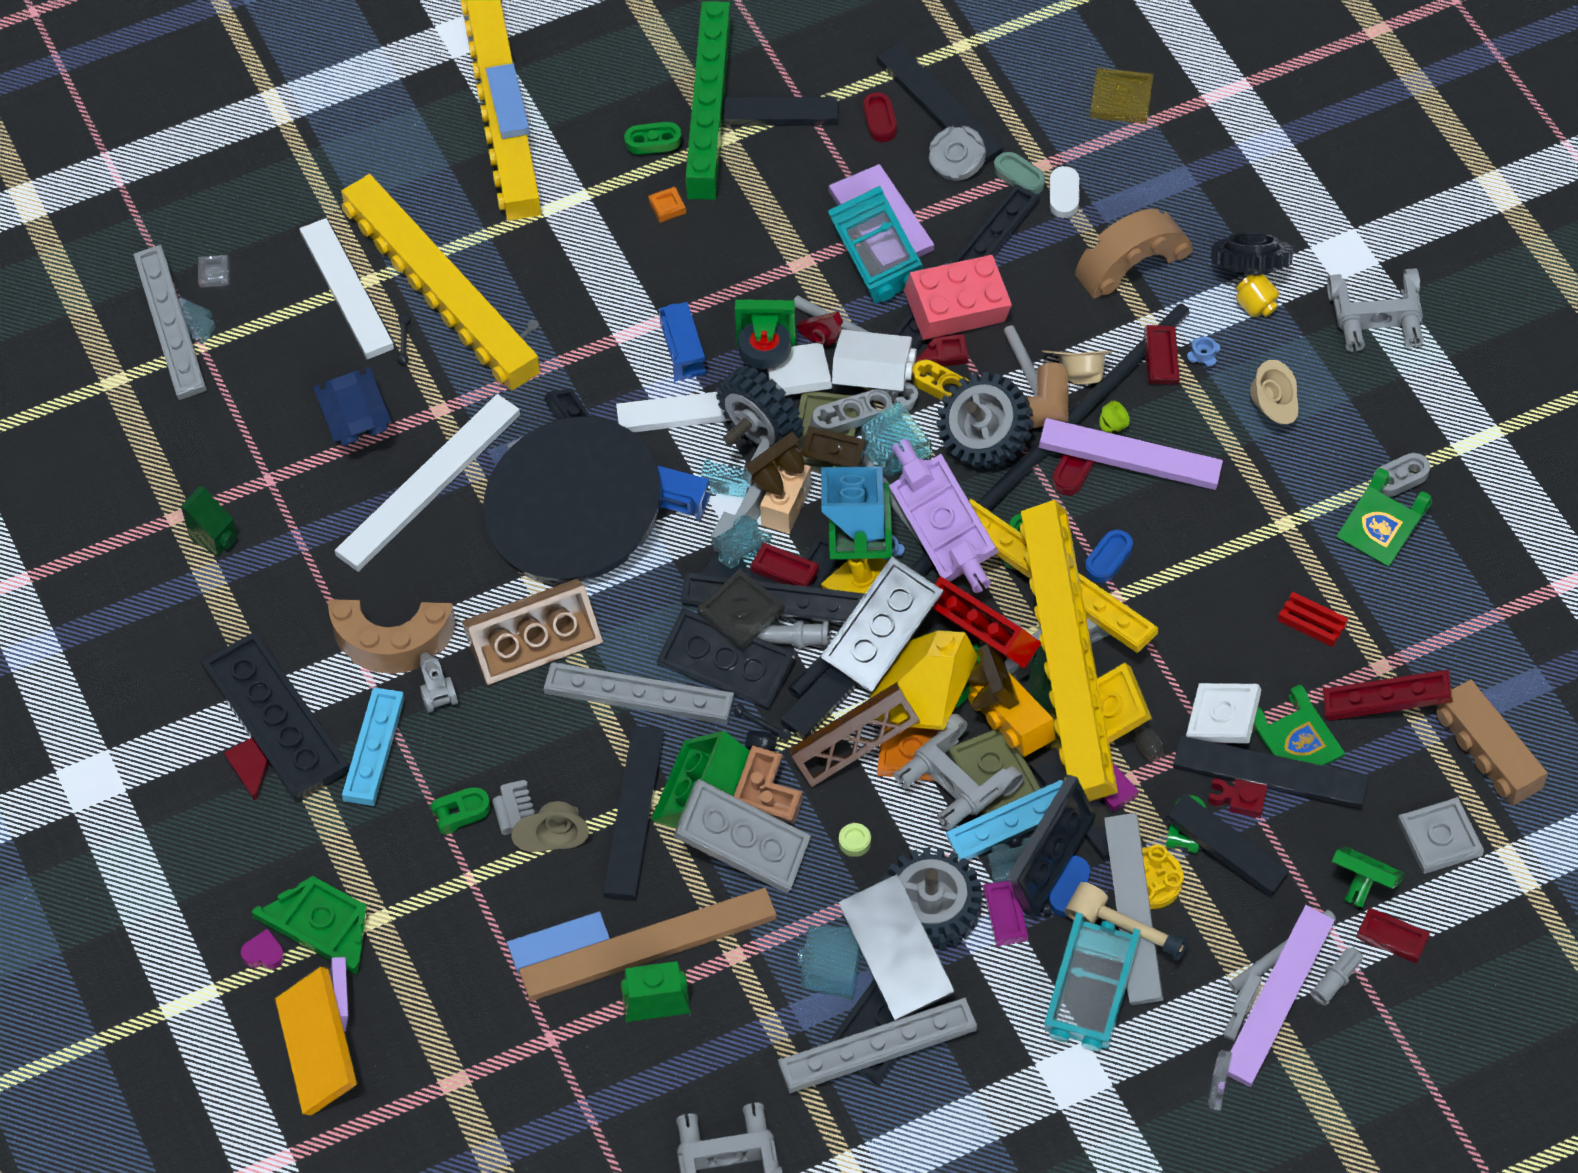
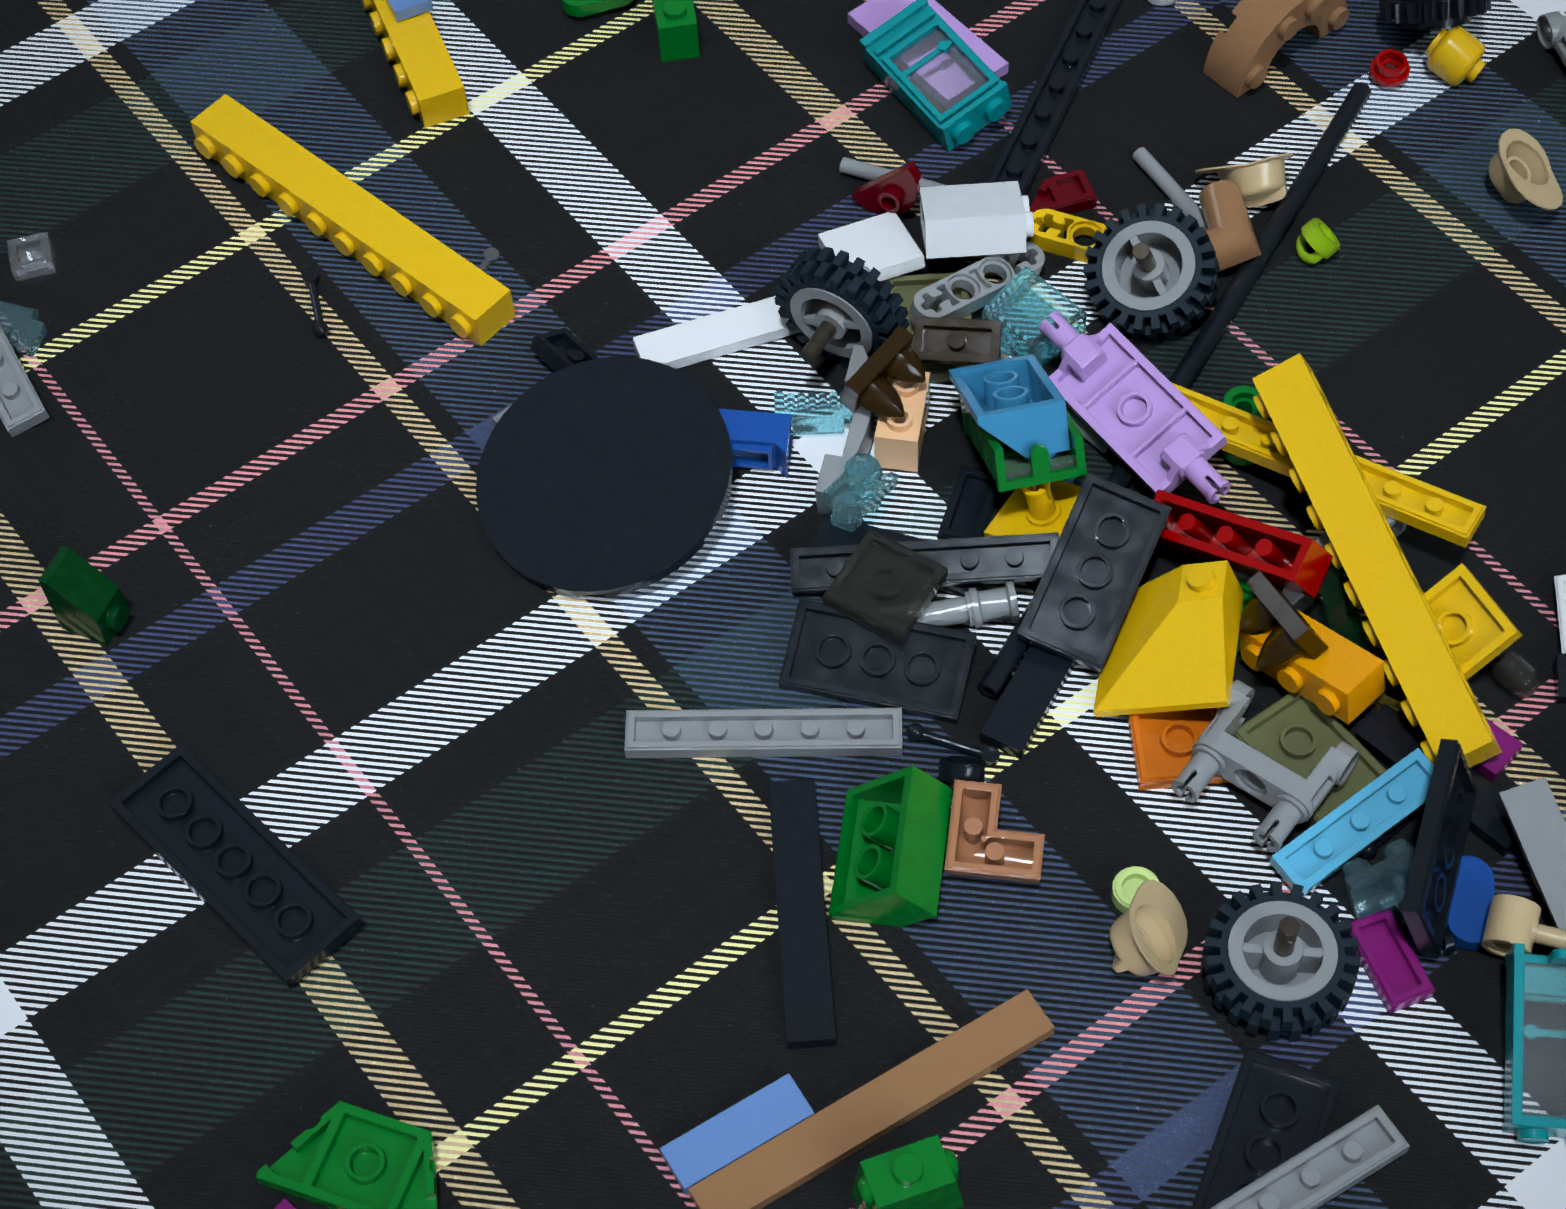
camera: 10 degrees left, 0 degrees up
(248, 765) = (208, 946): dark red tile -> none
(346, 288) = (223, 250): white tile -> none
(352, 406) = (263, 401): dark blue brick -> none
(373, 746) = (391, 884): medium azure plate -> none
(391, 648) = (386, 732): medium nougat brick -> none
(427, 482) = (388, 492): white tile -> none
(437, 689) = (468, 780): light grey piece -> none
(472, 807) = (559, 946): green plate -> none
(507, 806) = (617, 950): light grey piece -> none
(532, 631) = (589, 671): medium nougat slope -> none
(552, 828) = (687, 957): dark tan piece -> none
(667, 204) = (637, 72): orange tile -> none
(682, 341) = (704, 239): blue window -> none
(742, 836) = (976, 918): light grey tile -> none
(765, 331) = (816, 203): plate -> none
(784, 566) = (926, 516): dark red tile -> none
(829, 961) = (1158, 1084): clear light blue torso -> none
(847, 724) = (1087, 722): reddish brown fence -> none
(854, 865) = (1150, 932): none -> tan piece
(896, 947) = (1258, 1048): tile -> none
(957, 297) = (1064, 120): coral brick -> none
(1071, 474) = (1283, 317): dark red tile -> none
(1108, 556) = (1371, 422): blue tile -> none
(1130, 454) = (1357, 283): lavender tile -> none
(1161, 354) = (1355, 150): dark red tile -> none
(1207, 345) = (1407, 137): medium blue plate -> none
(1209, 290) = (1389, 68): none -> red plate

